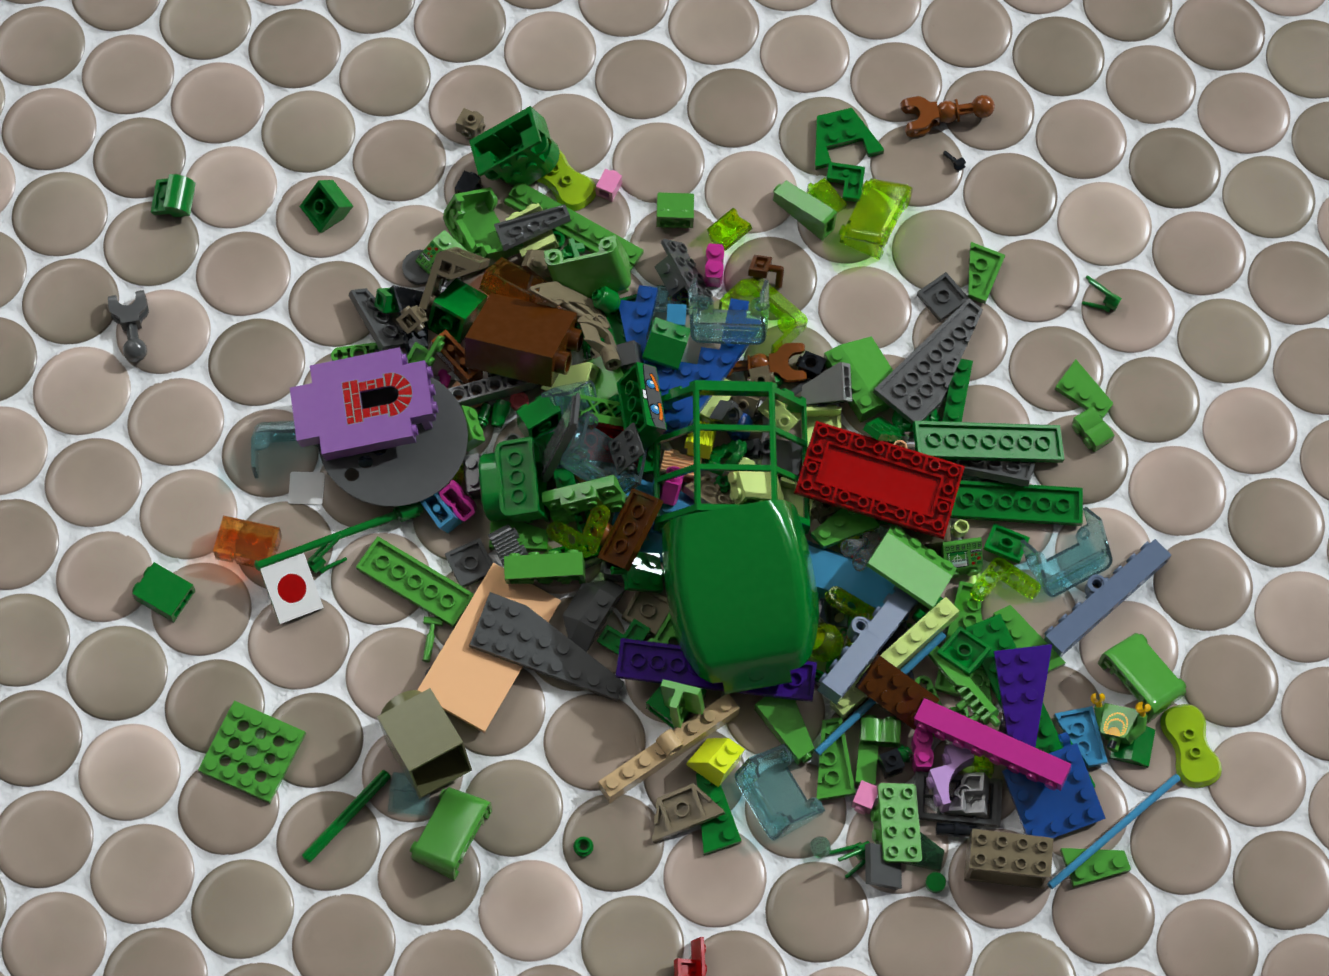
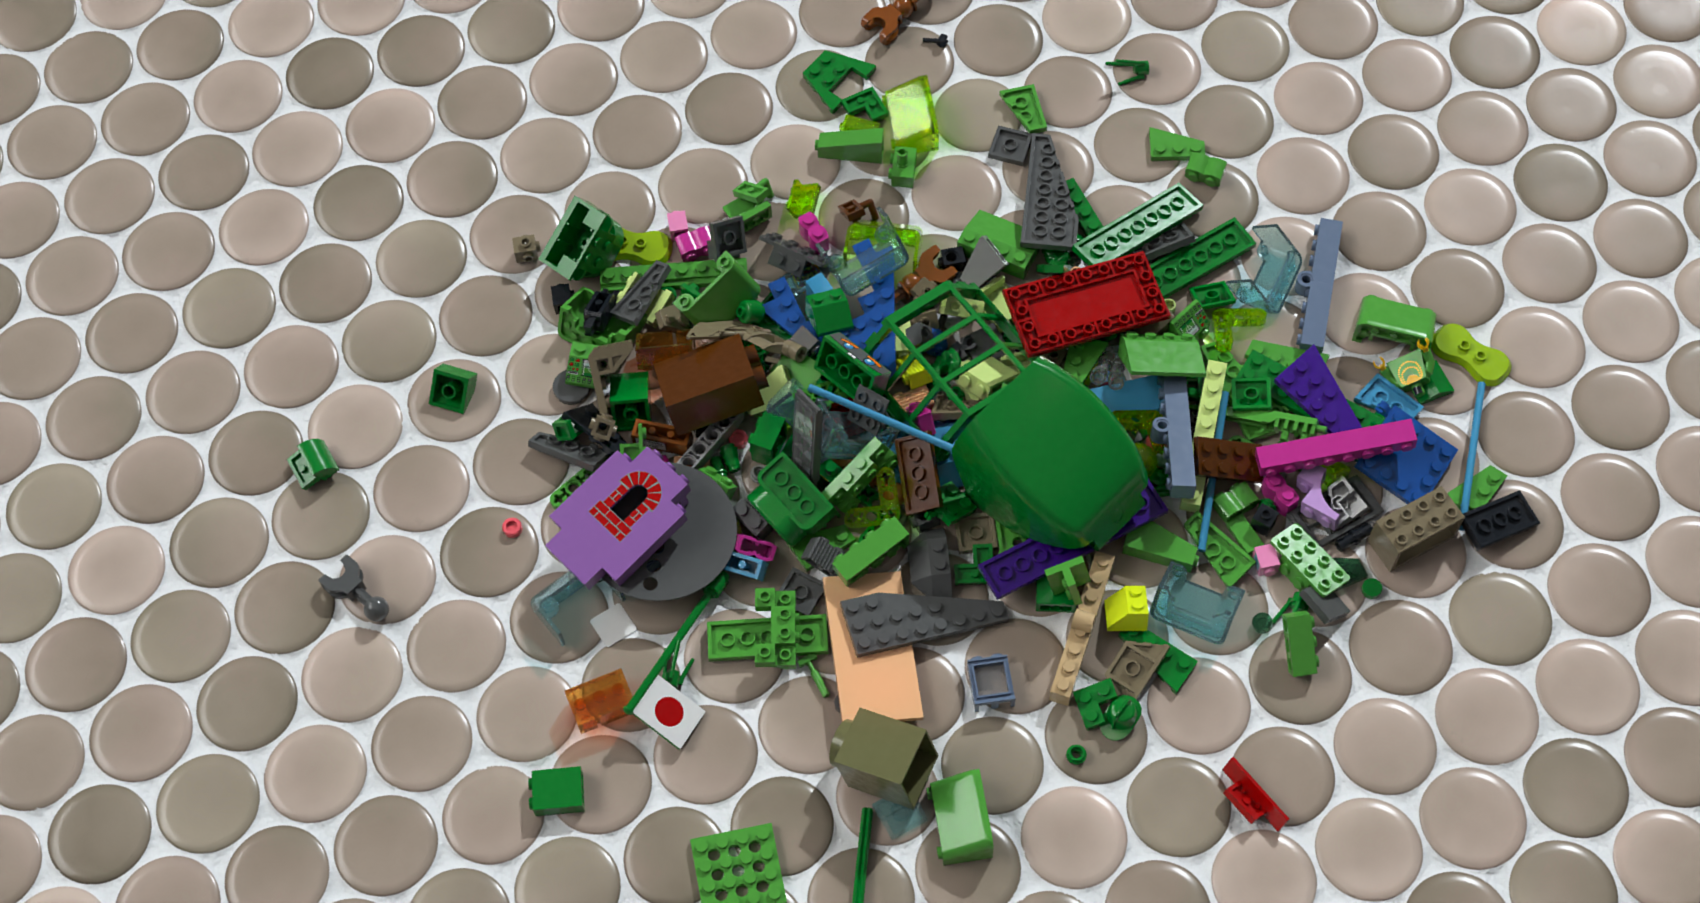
camera: 30 degrees left, 5 degrees down
(287, 354) = (512, 527): none -> coral tile
(429, 583) = (782, 650): none -> bright green bracket
(483, 217) = (598, 311): none -> black hinge
(561, 740) = (990, 681): none -> window
(611, 210) = (693, 244): none -> dark pink brick
(626, 460) = (880, 417): none -> dark azure piece
(627, 811) = (1090, 699): none -> green plate
(635, 223) = (727, 236): none -> dark grey plate
(642, 841) = (1121, 717): none -> green piece
(690, 198) = (754, 192): none -> bright green plate
(832, 885) = (1300, 643): none -> bright green brick
(835, 256) = (903, 167): none -> bright green brick
(1088, 901) = (1499, 520): none -> black tile

